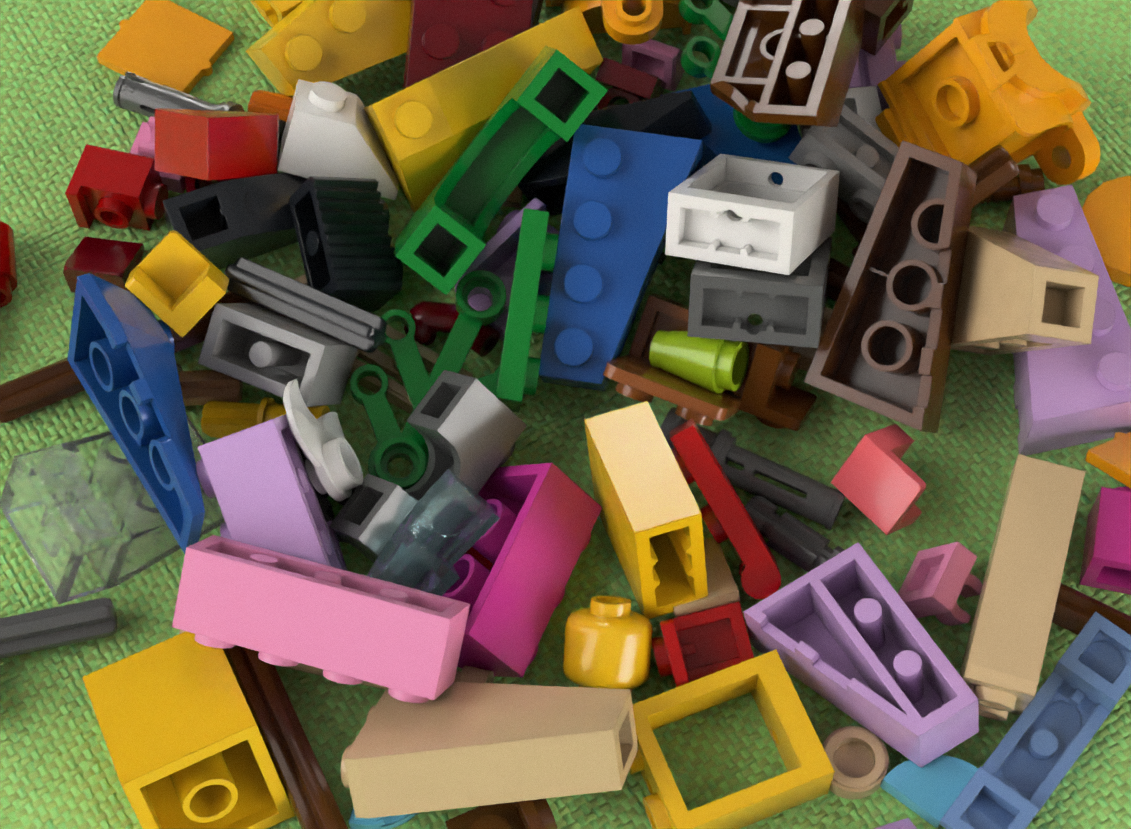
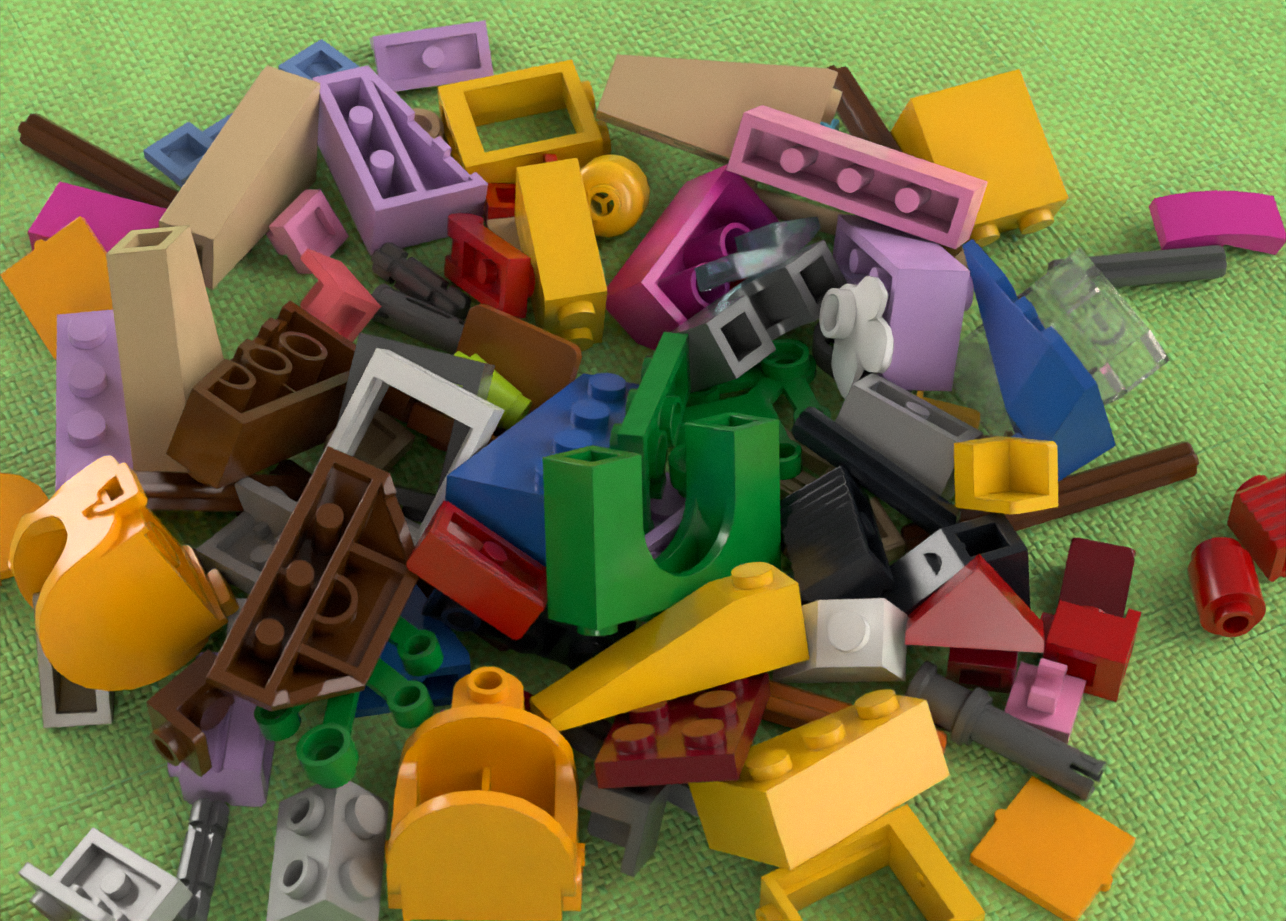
camera: 175 degrees left, 10 degrees down
(658, 97) = (480, 571): none -> red slope

